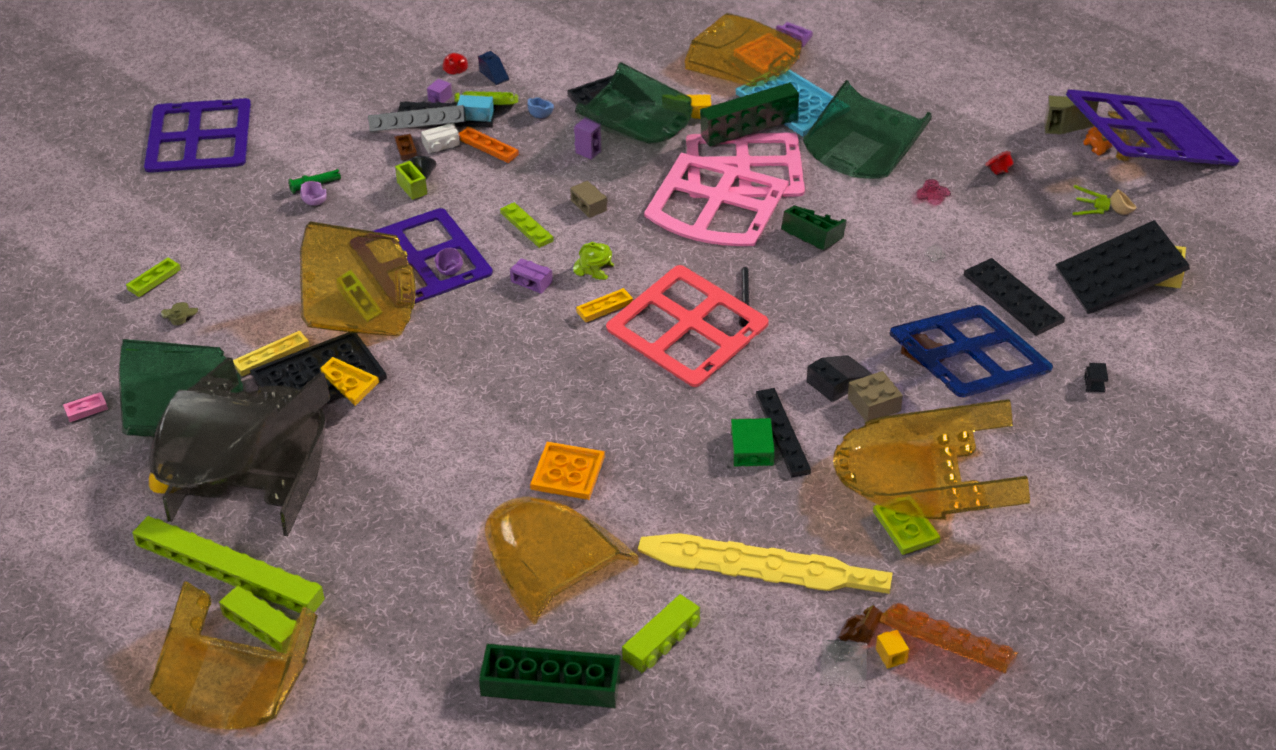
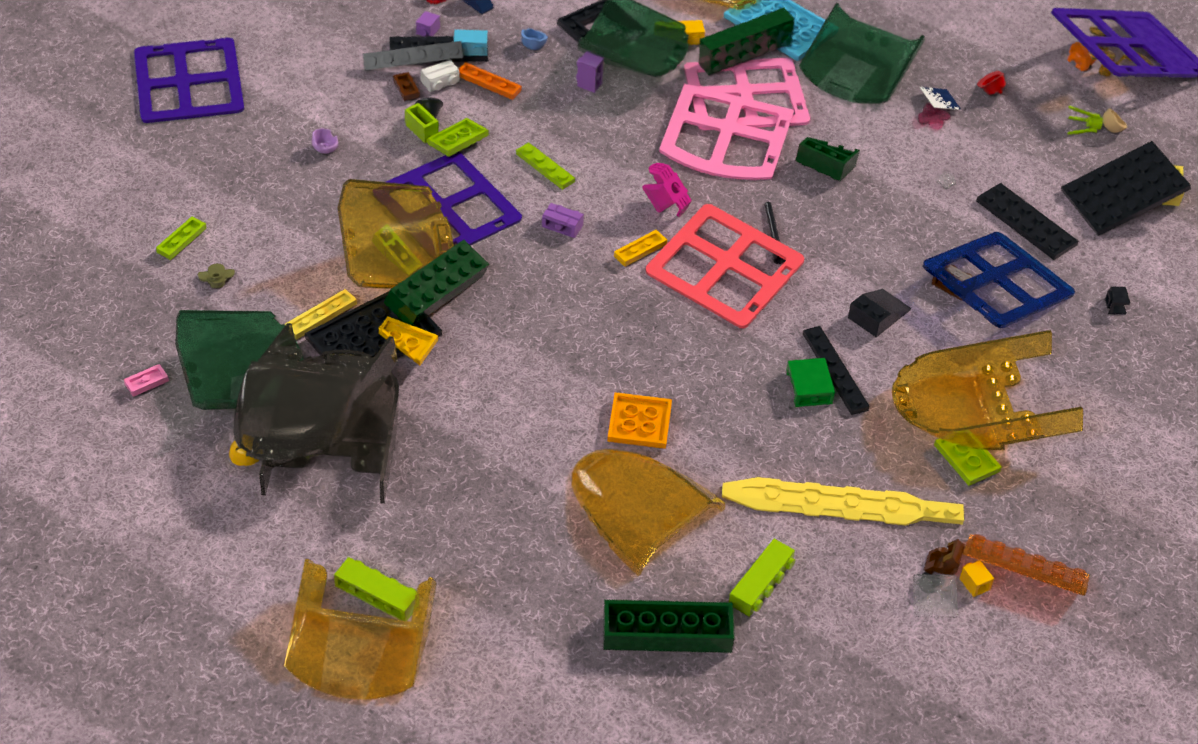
camera: 10 degrees left, 5 degrees up
(228, 565) = (331, 536): lime brick -> none
(295, 185) = (307, 130): green pin -> none
(388, 328) = (436, 283): none -> dark green brick
(444, 194) = (457, 137): none -> lime plate
(448, 261) = (478, 209): medium lavender hair -> none
(499, 98) = (493, 29): lime tile -> none
(588, 199) = (602, 136): dark tan brick -> none
(592, 257) = (619, 201): lime helmet -> none
(640, 249) = (667, 190): none -> dark pink piece
(875, 396) = (917, 330): dark tan brick -> none
(943, 175) = (940, 98): none -> sticker
(1064, 116) = (1047, 32): olive slope -> none

